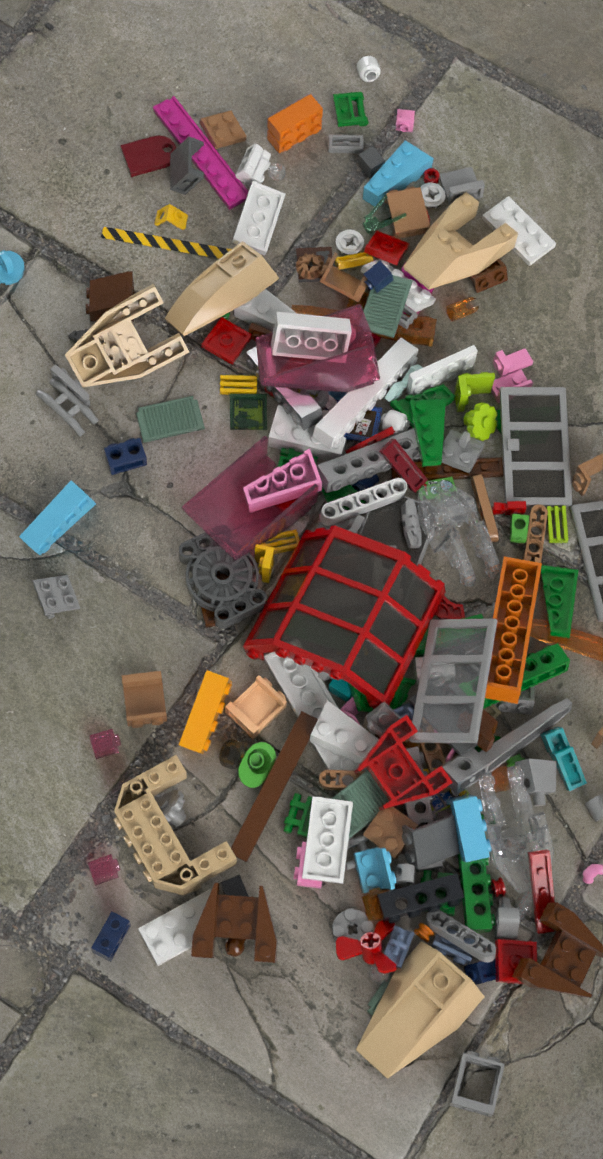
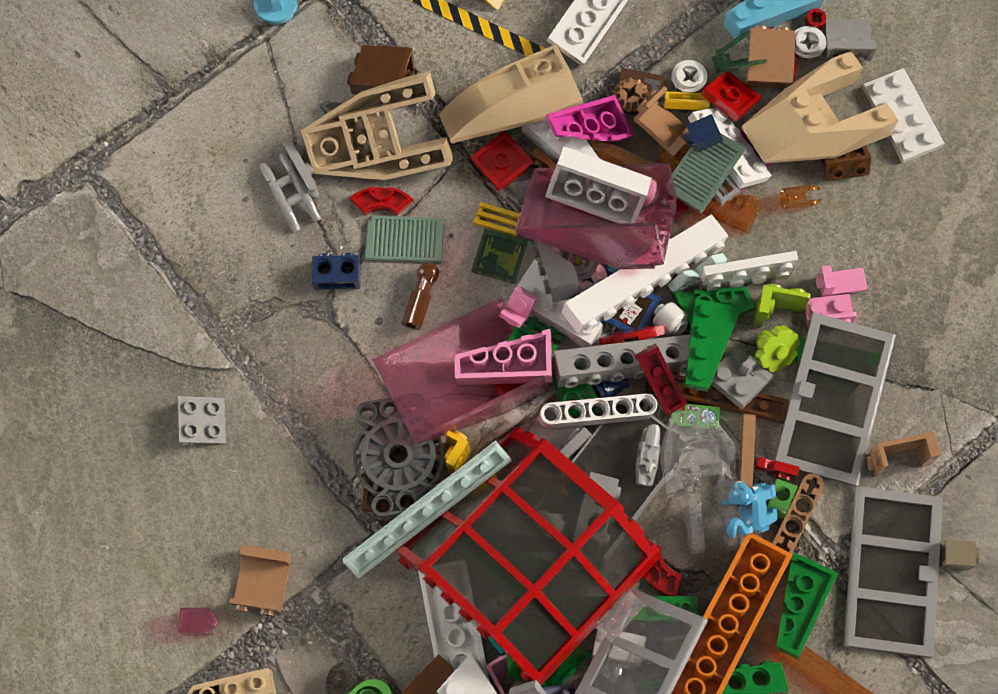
camera: 25 degrees right, 5 degrees up
(57, 518) = (232, 326): medium azure wedge -> none
(141, 393) = (381, 198): none -> red tile
(197, 458) = (420, 297): none -> reddish brown piece
(205, 712) = (325, 619): light orange wedge -> none
(256, 707) = (389, 629): light nougat panel -> none
(258, 607) = (427, 509): none -> light aqua tile
(278, 441) = (518, 307): none -> bright pink bracket
(284, 542) = (482, 439): yellow tile -> none
(289, 290) = (592, 121): none -> dark pink wedge
(430, 639) = (619, 616): none -> clear hinge
(503, 541) = (753, 512): none -> dark azure animal
(556, 510) = (836, 485): lime tile -> none

